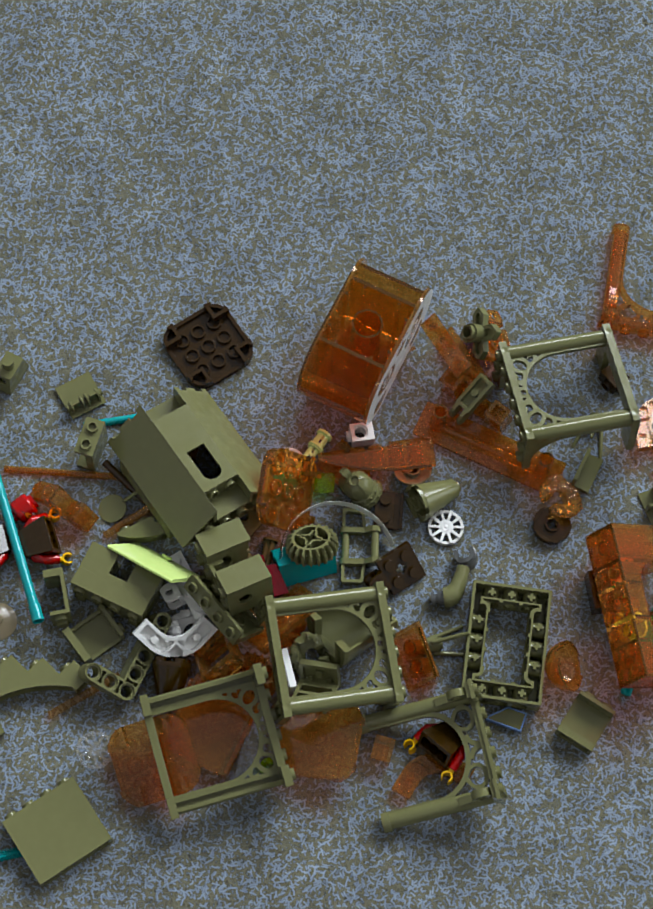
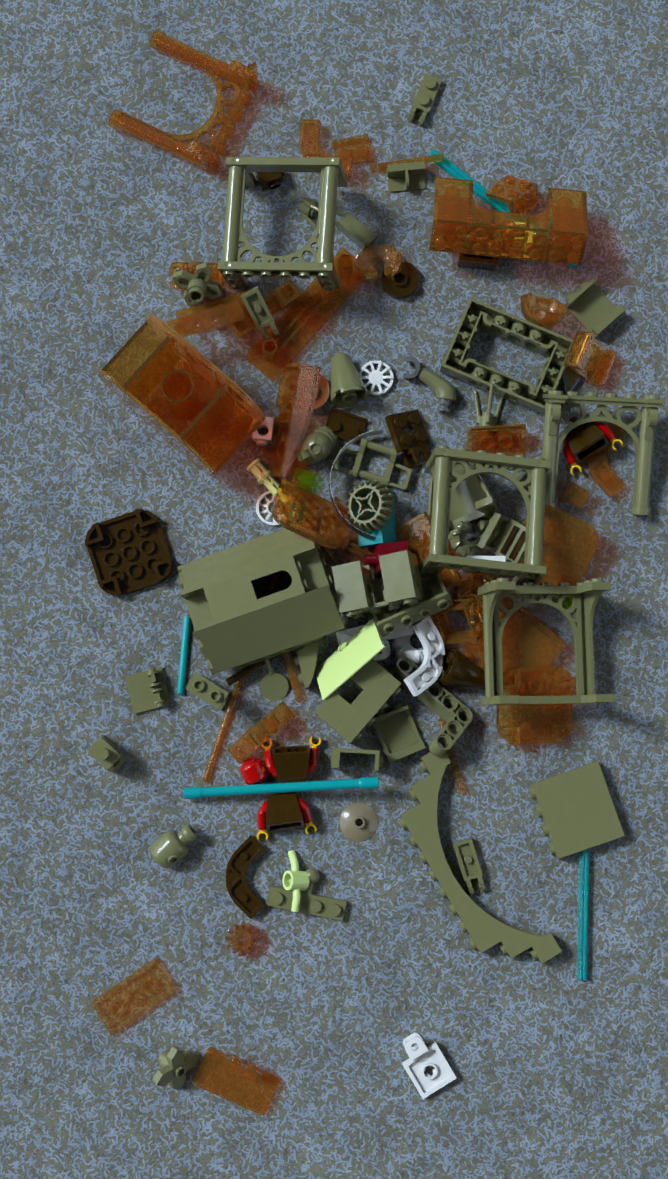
camera: 75 degrees left, 15 degrees up
(527, 727) = (589, 359): none -> clear orange panel

